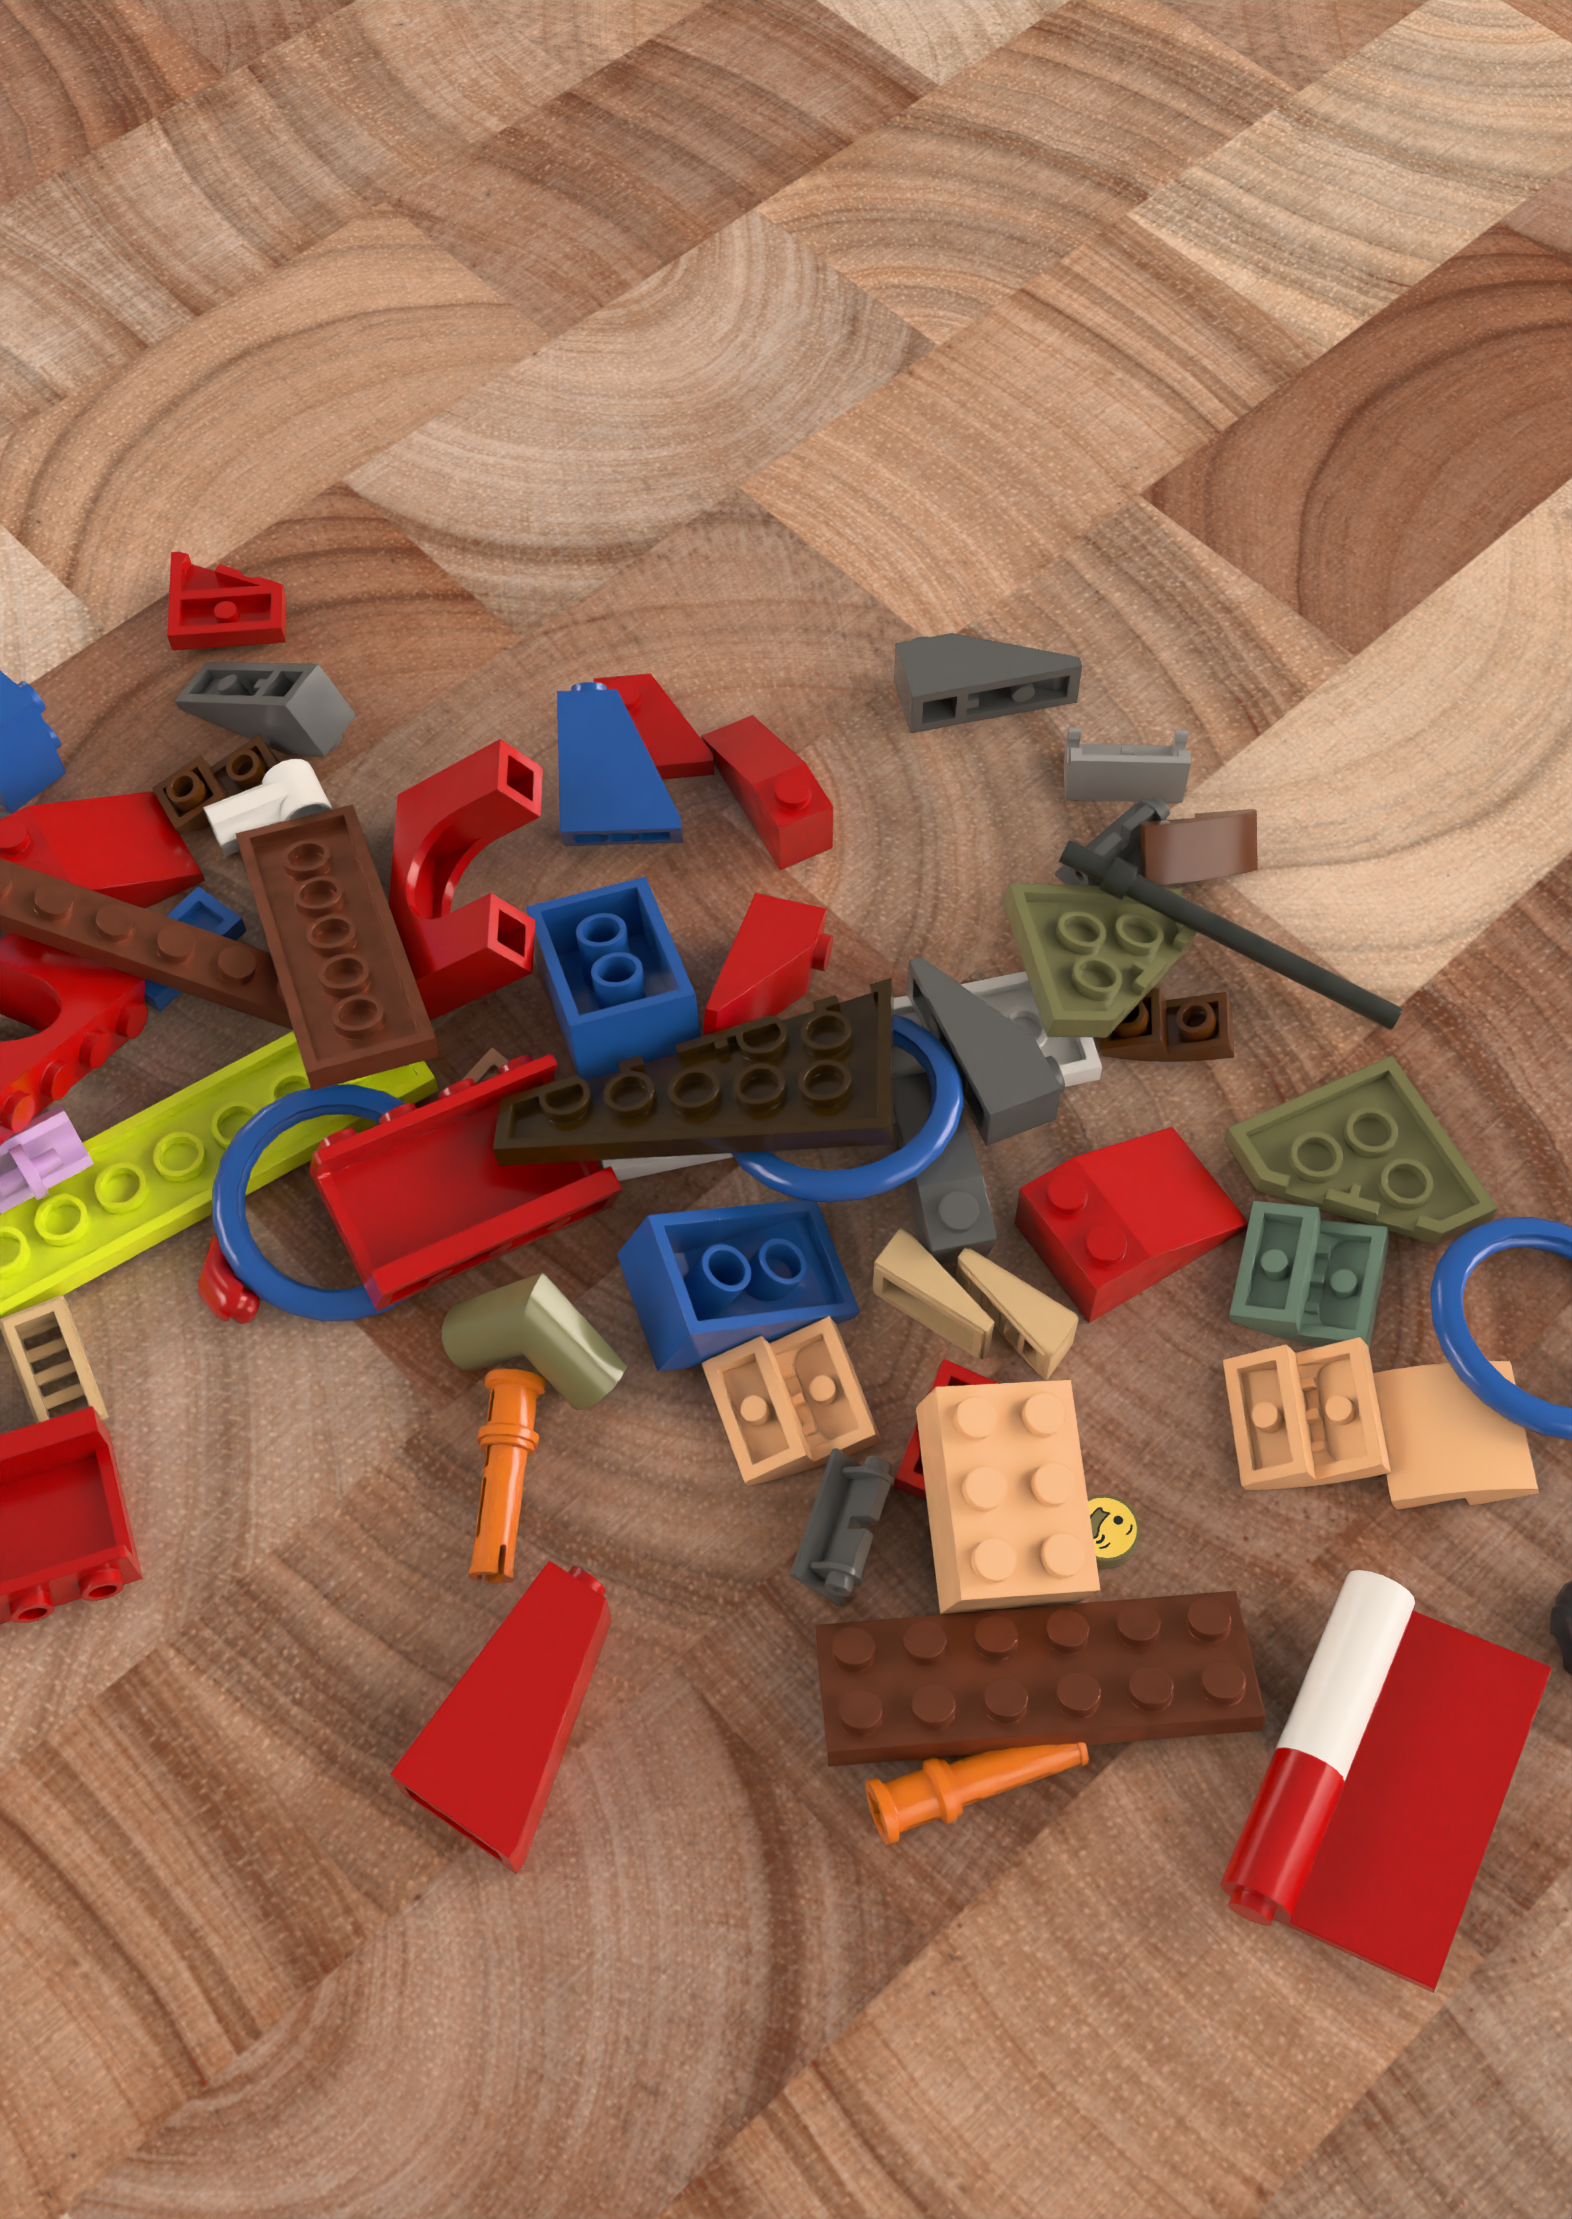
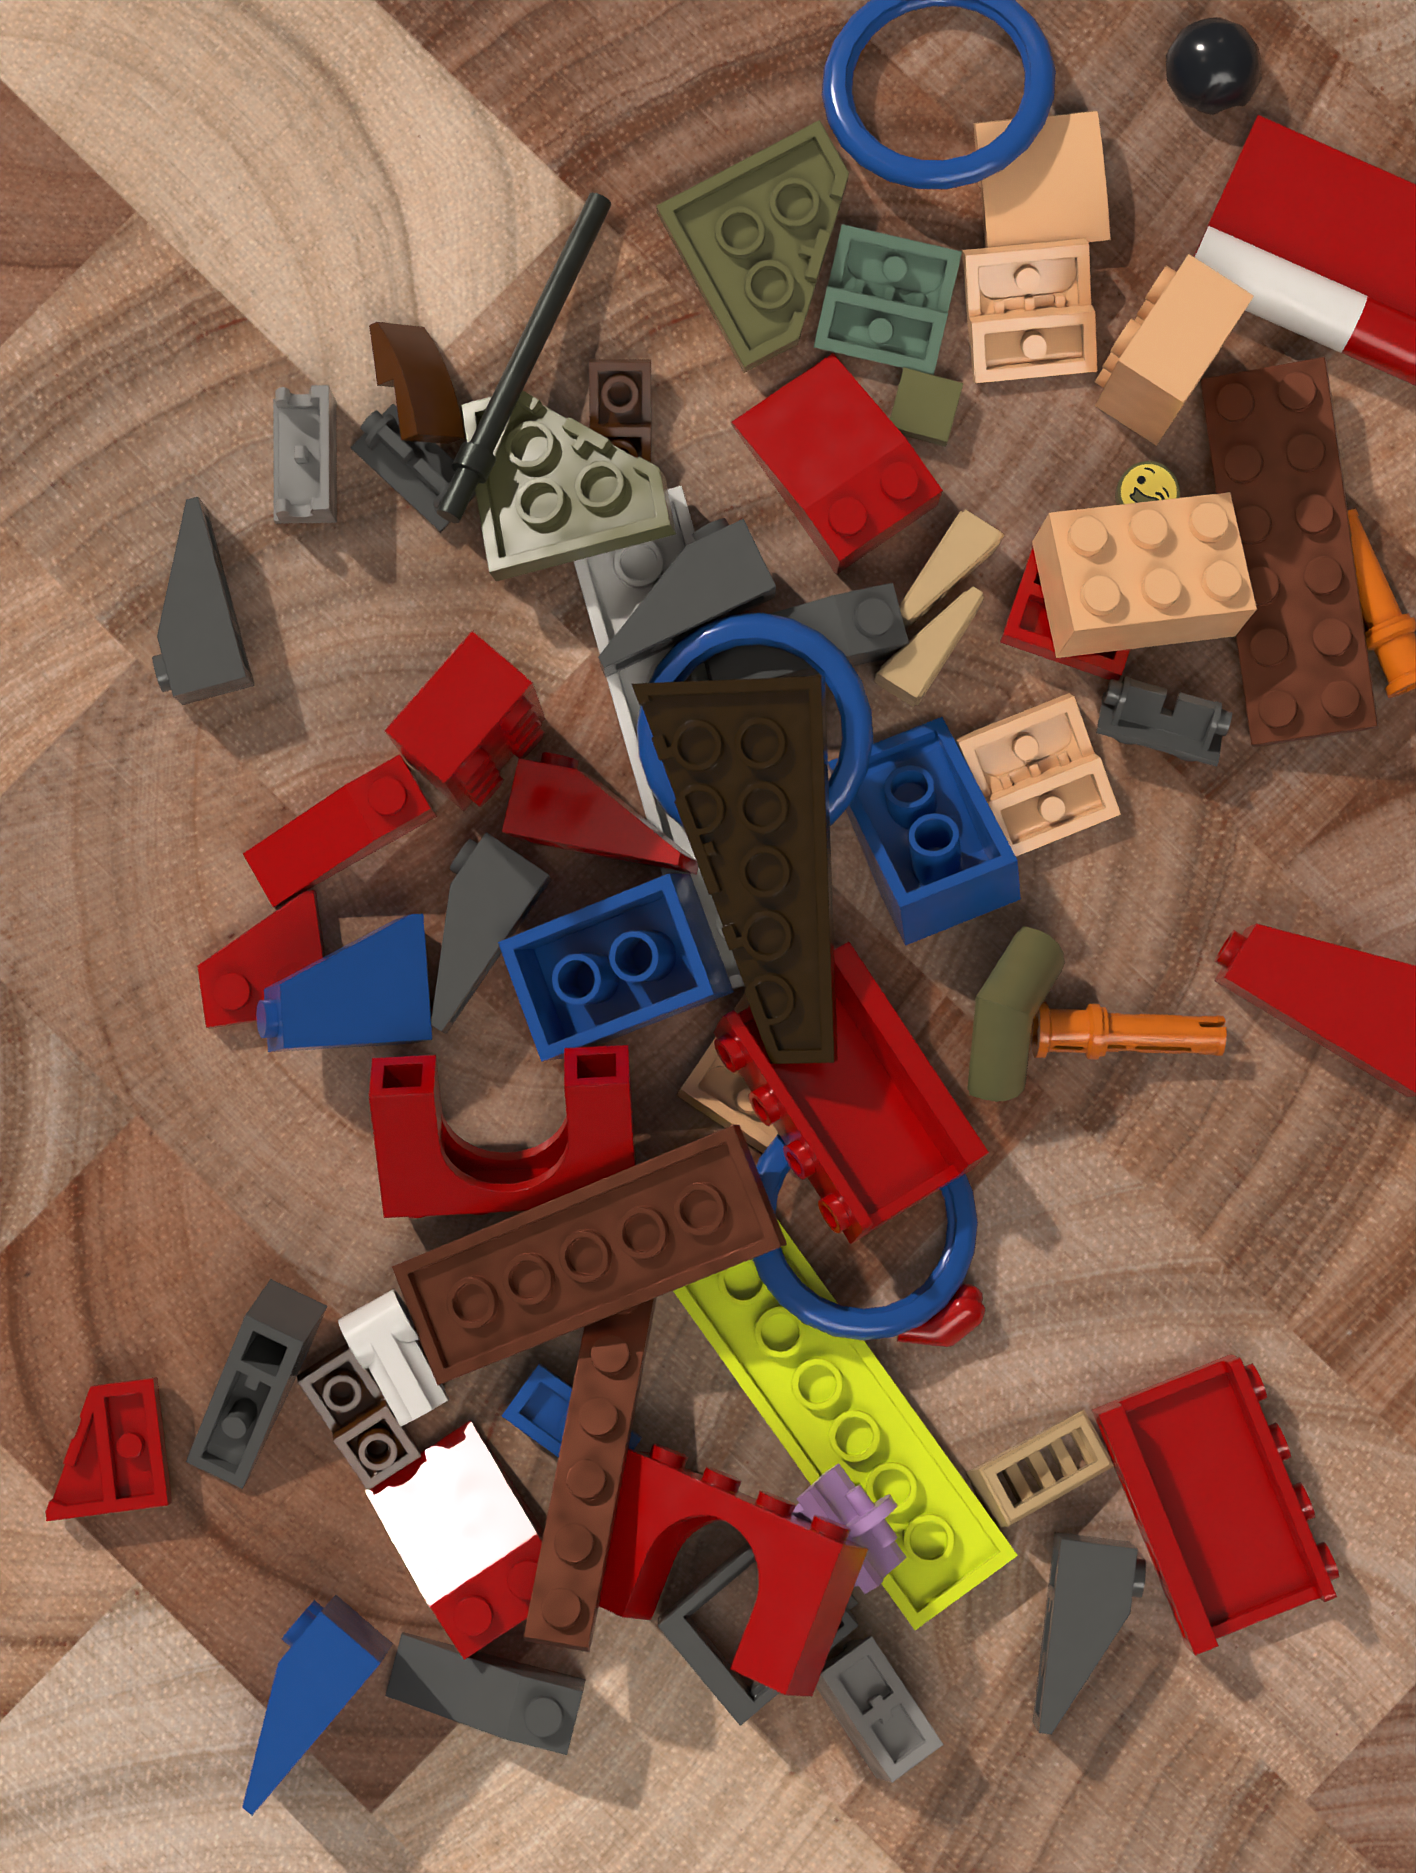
camera: 95 degrees left, 25 degrees up
(694, 888) = (484, 906): none -> dark grey slope
(854, 829) = (469, 723): none -> red brick
(1194, 1308) = (925, 406): none -> olive tile
(1259, 1518) = (1169, 347): none -> light nougat brick

